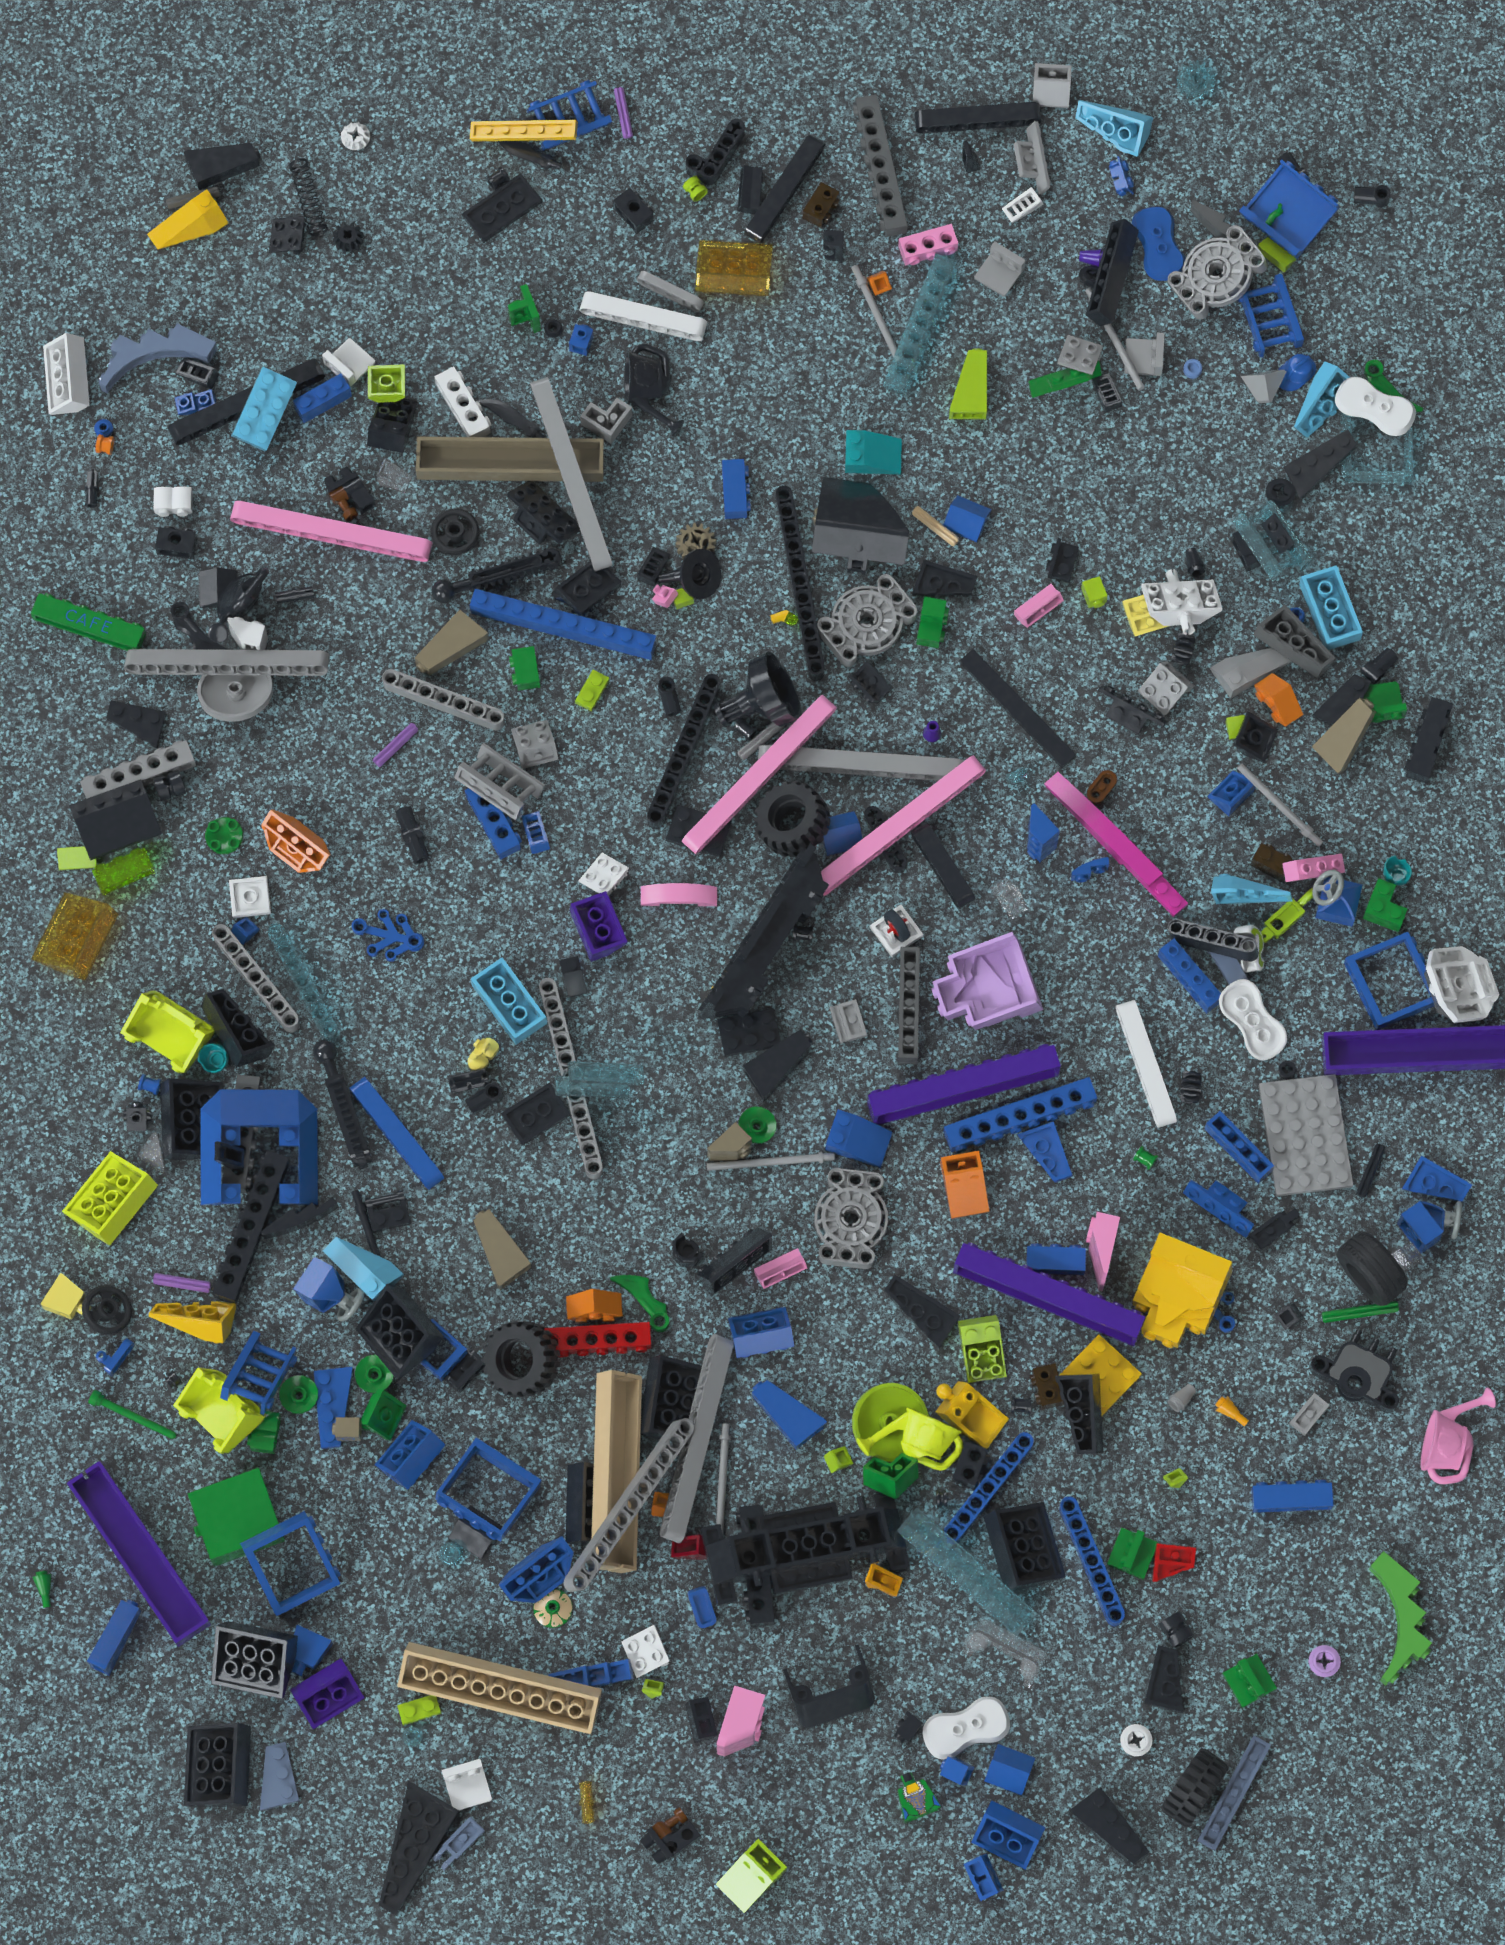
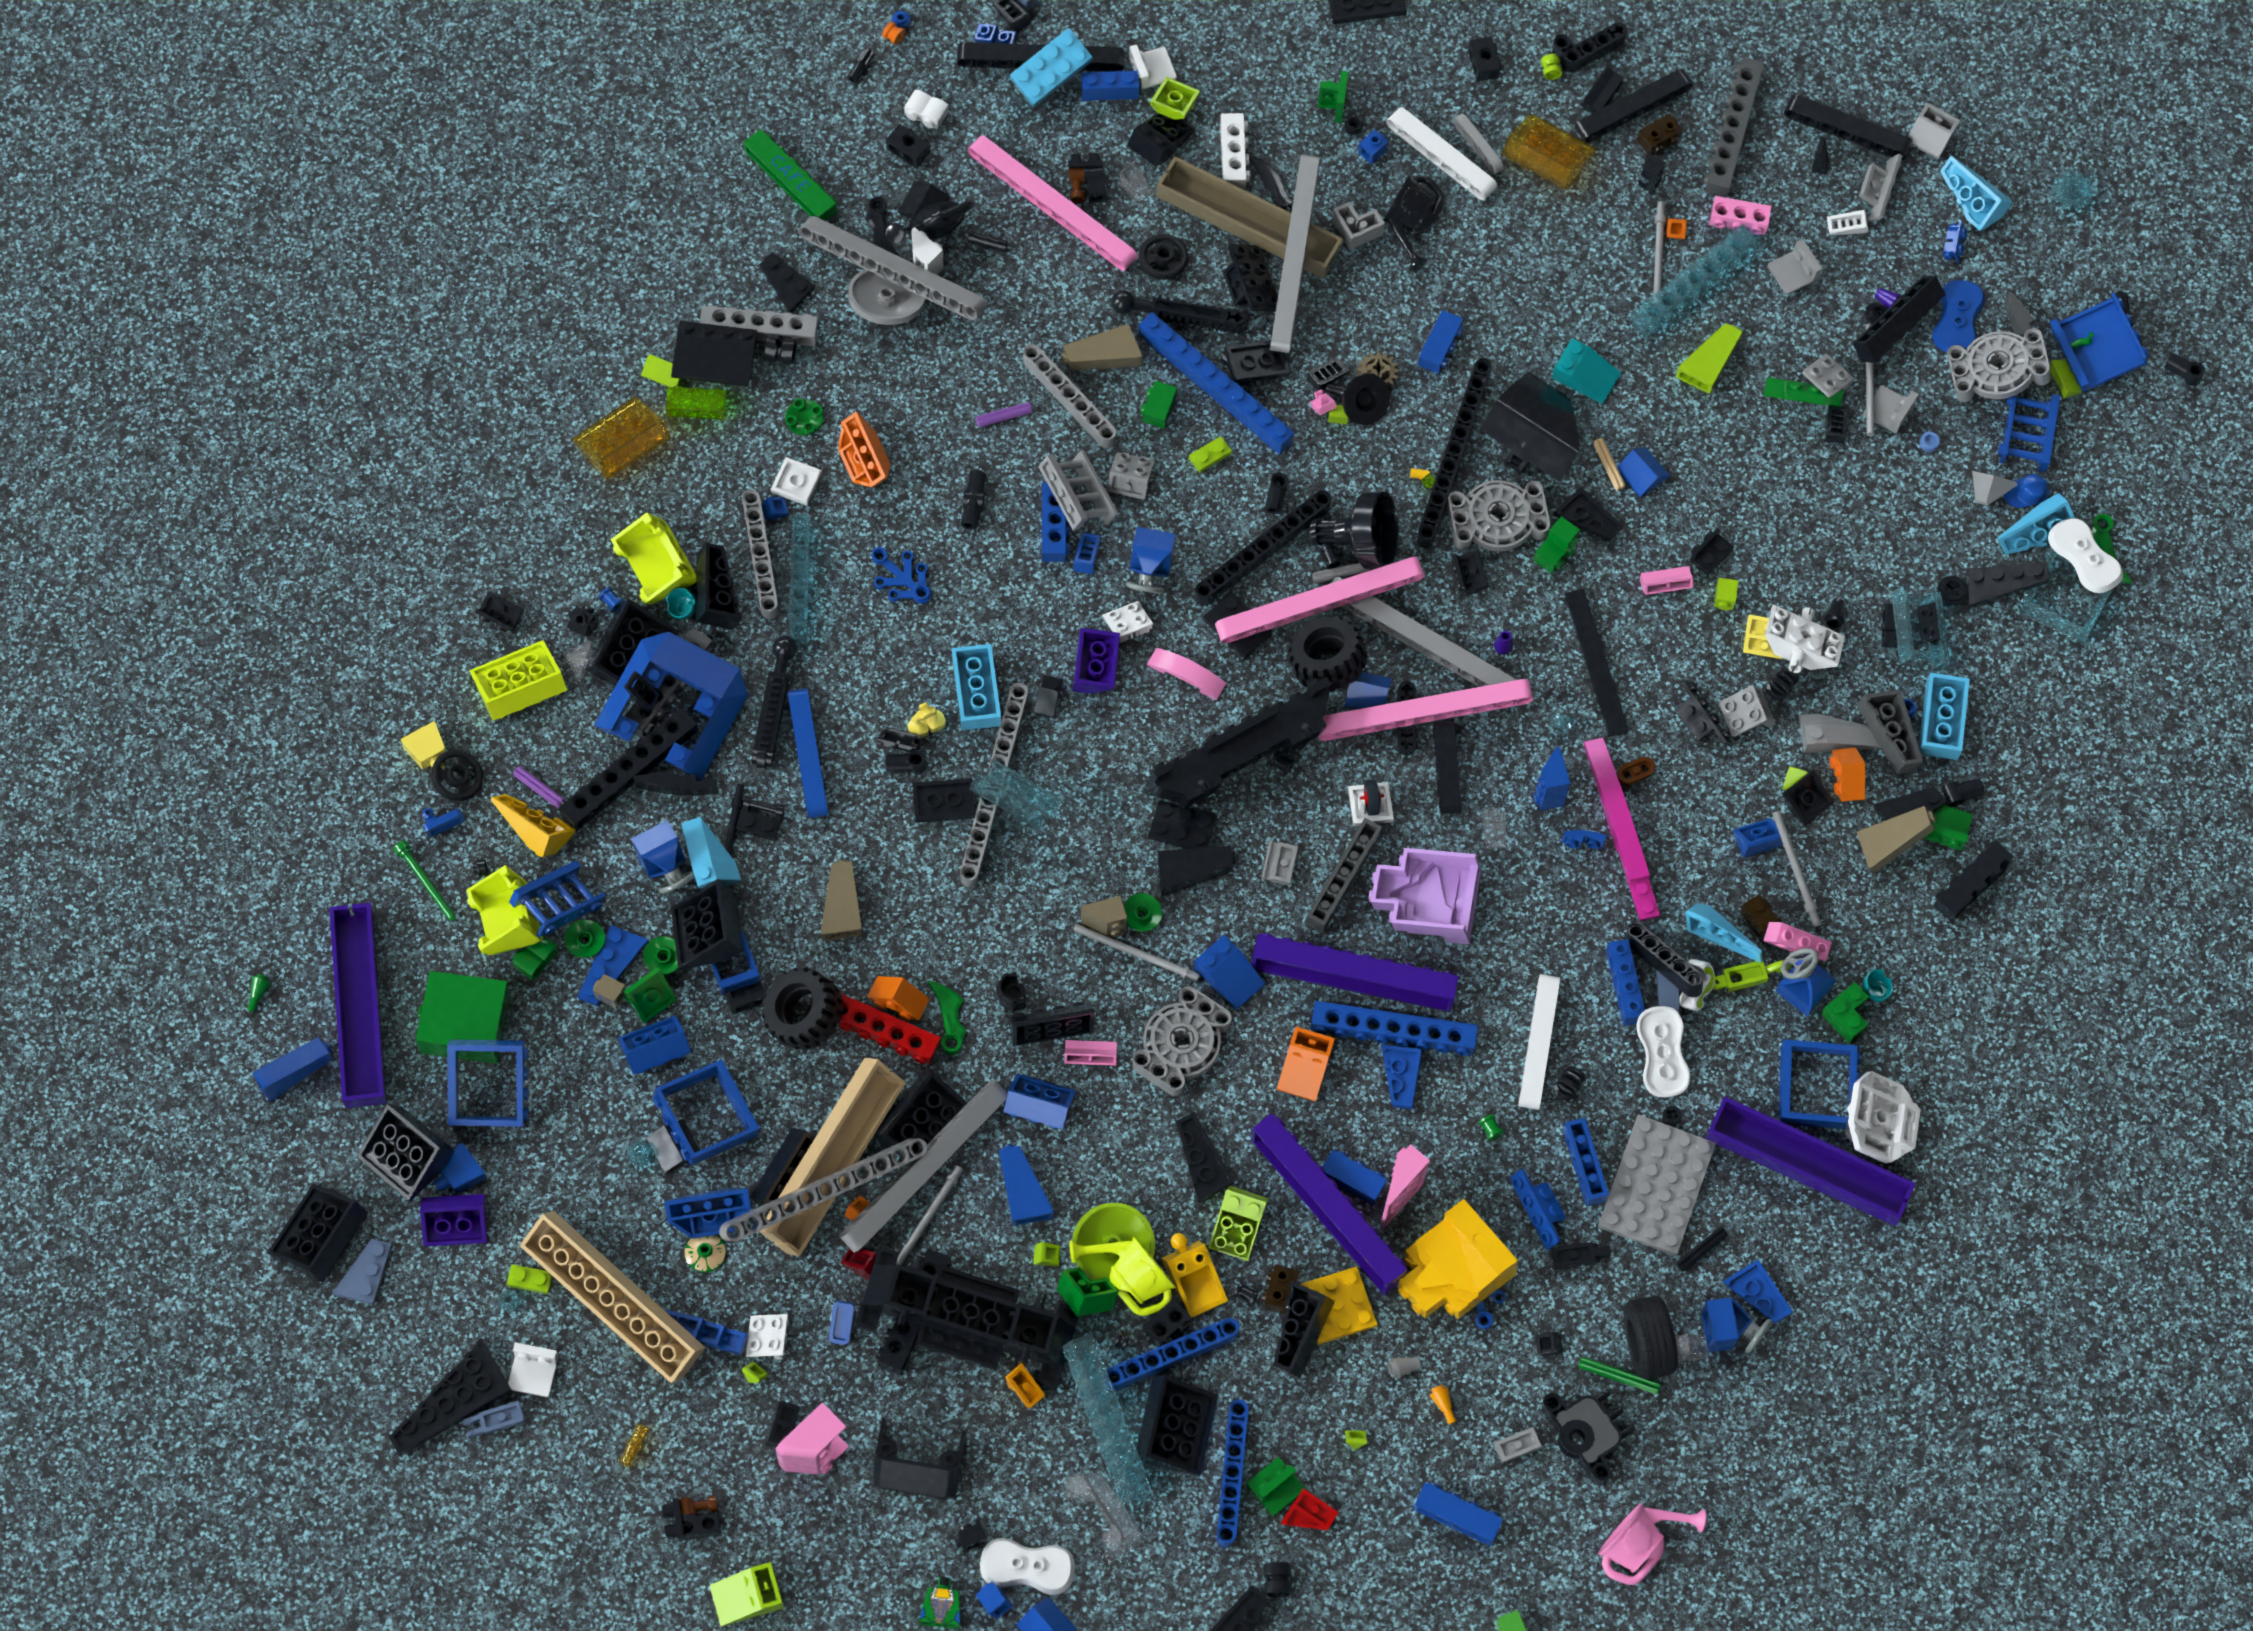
camera: 25 degrees right, 5 degrees down
(59, 1146) = (500, 611): none -> black bracket
(596, 810) = (1151, 557): none -> blue piece

